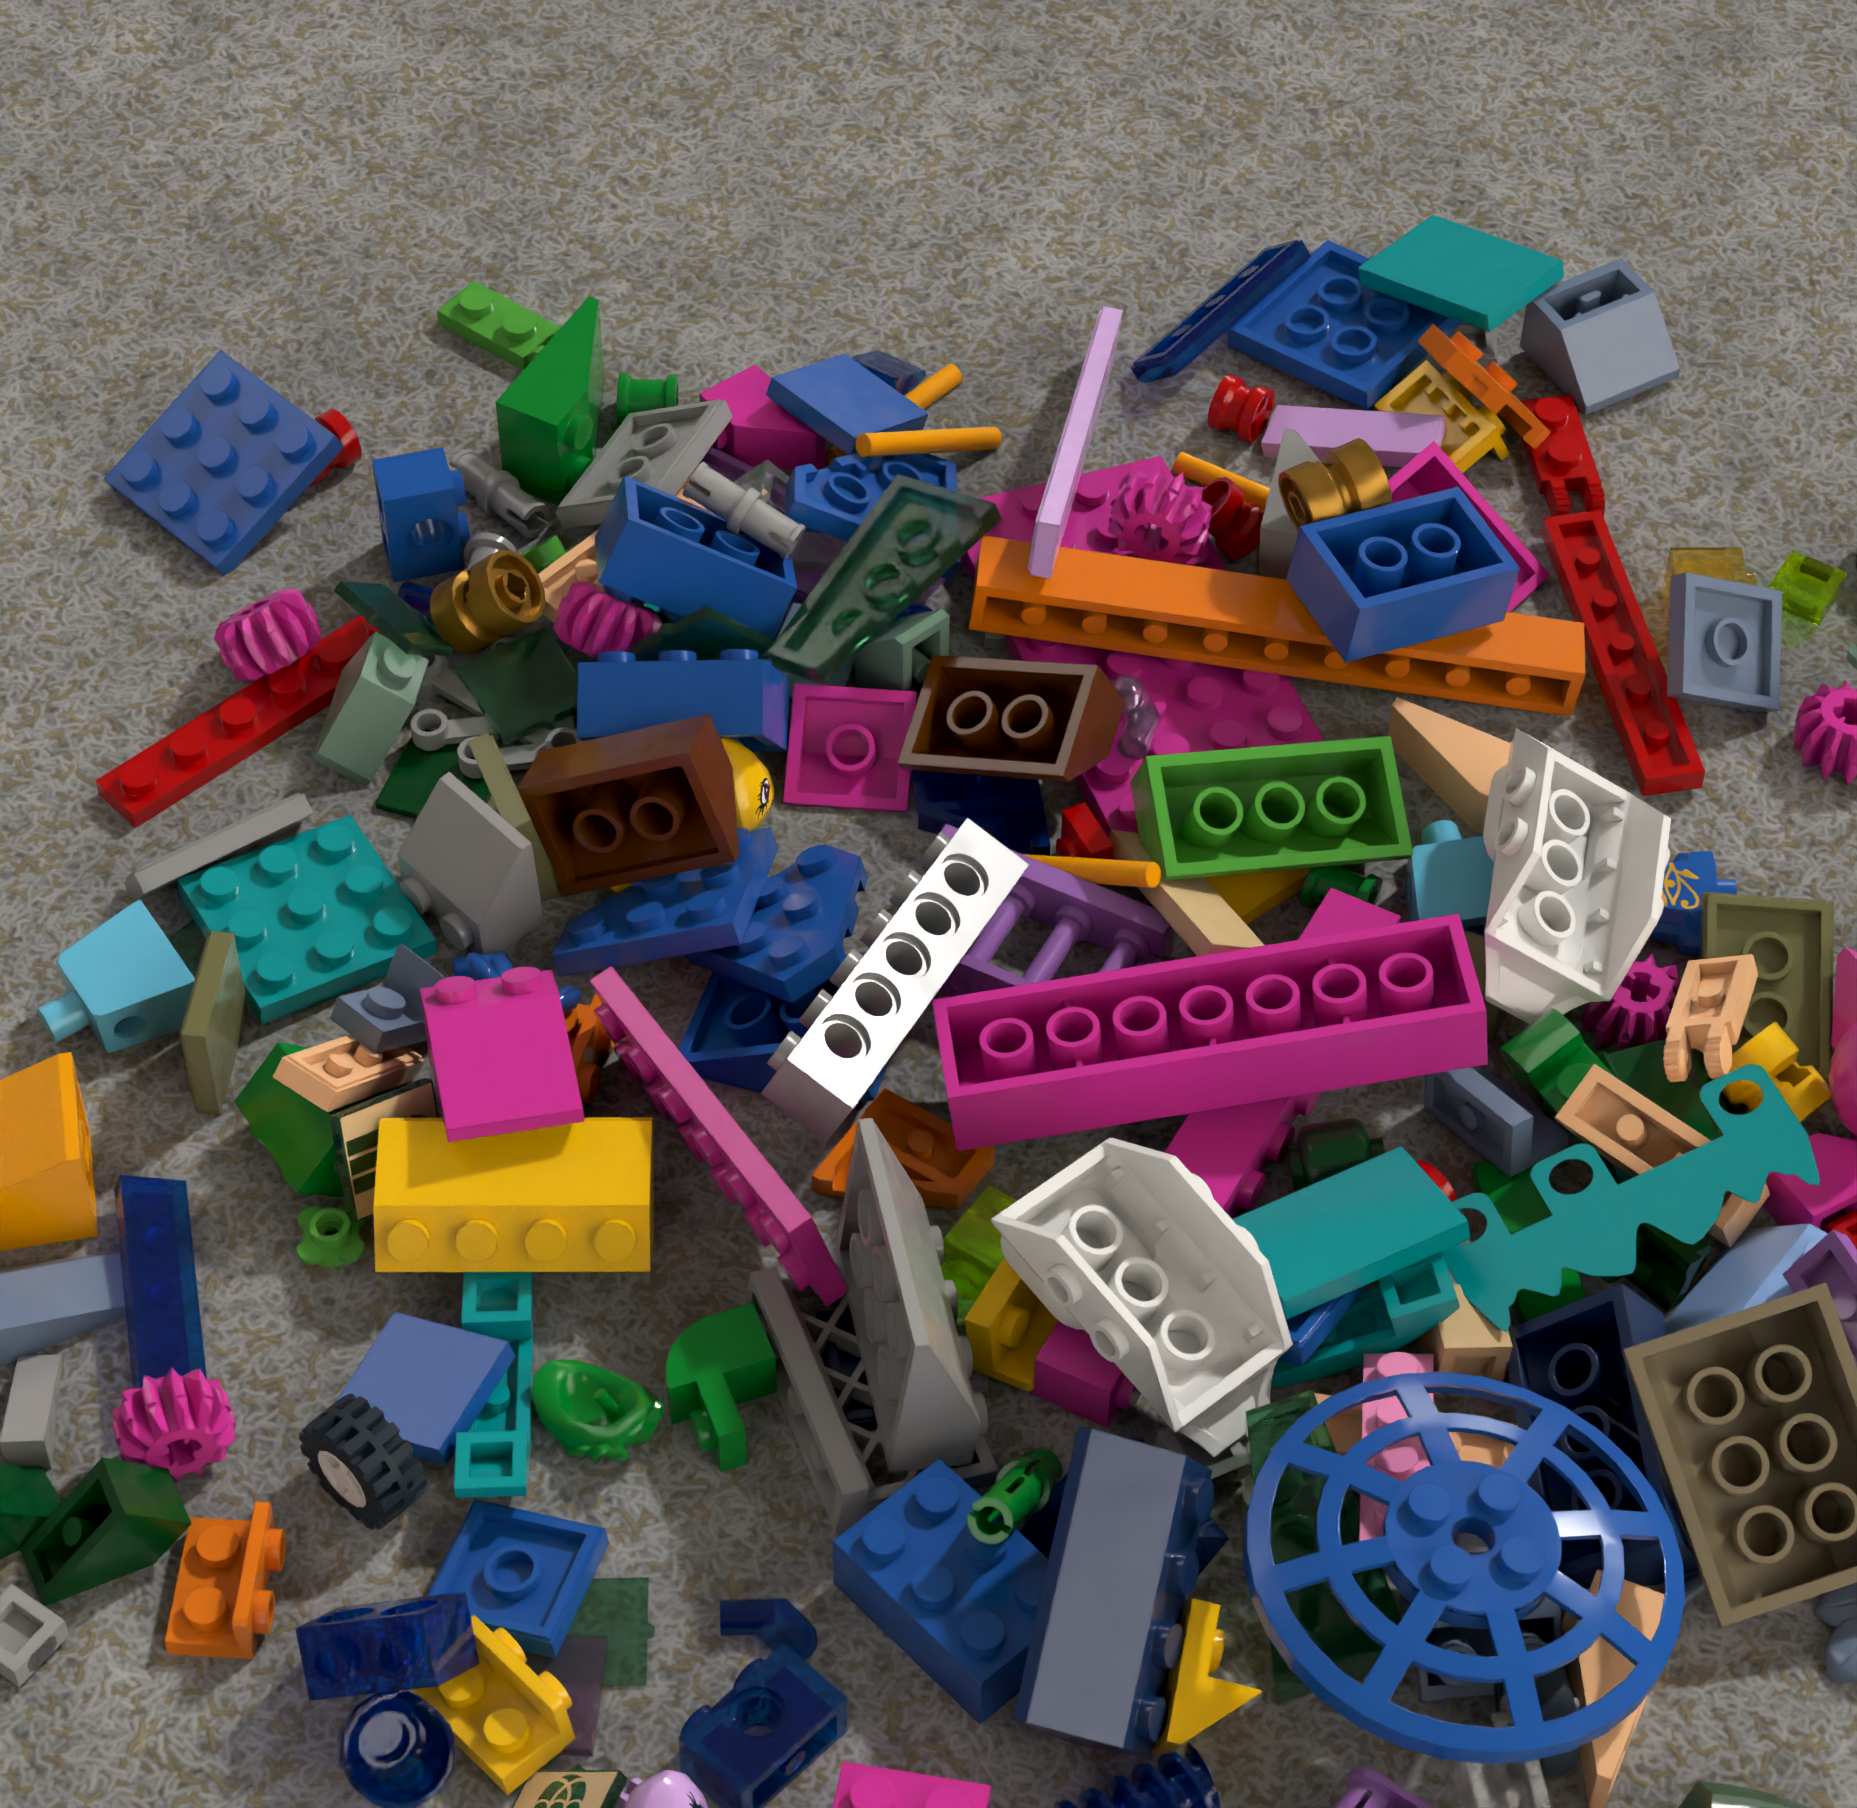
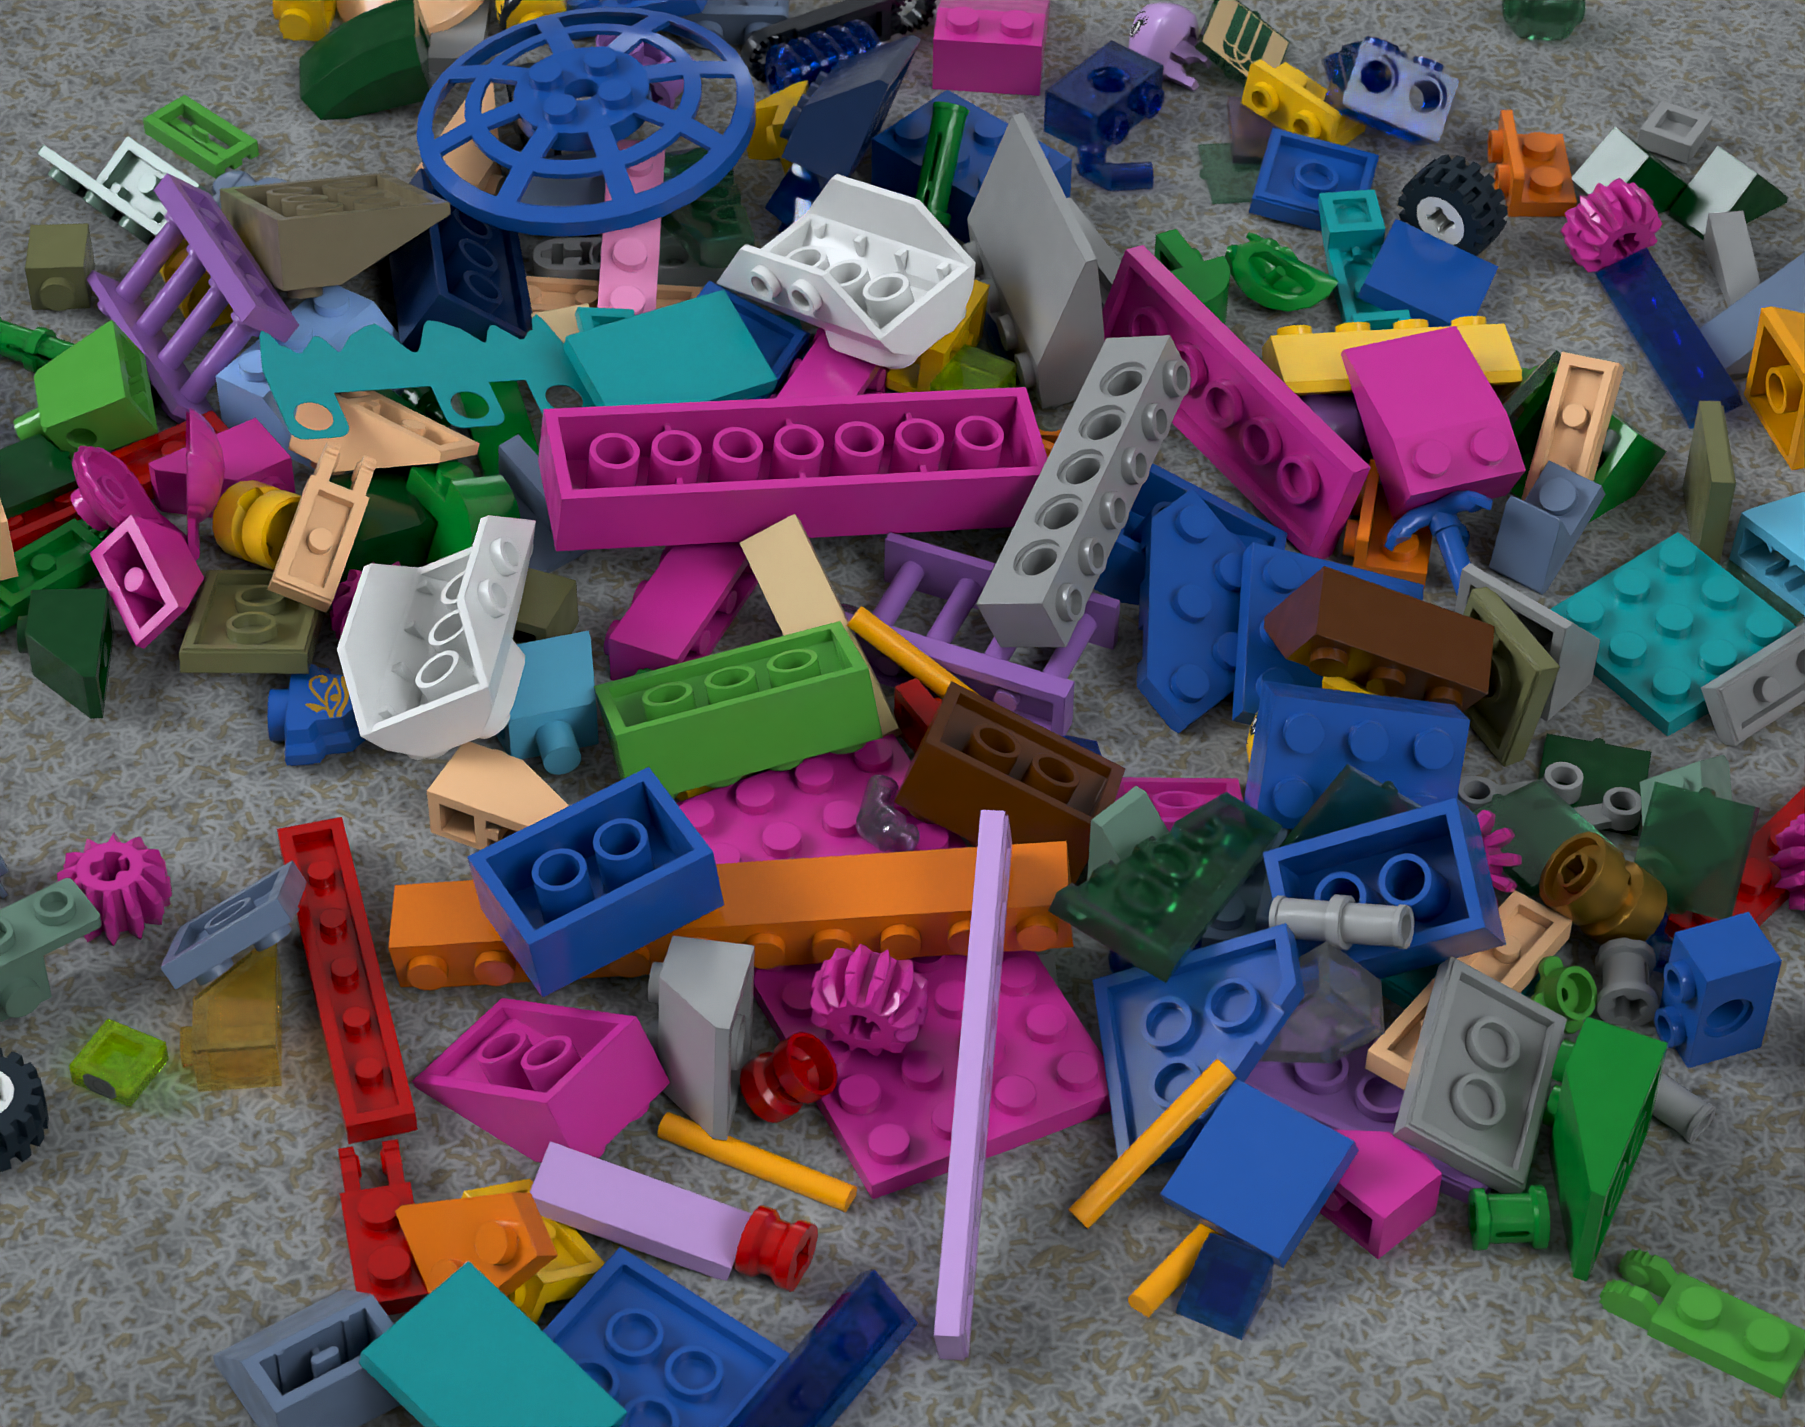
camera: 175 degrees right, 5 degrees down
(1343, 485) = (670, 920): pearl gold wheel -> none

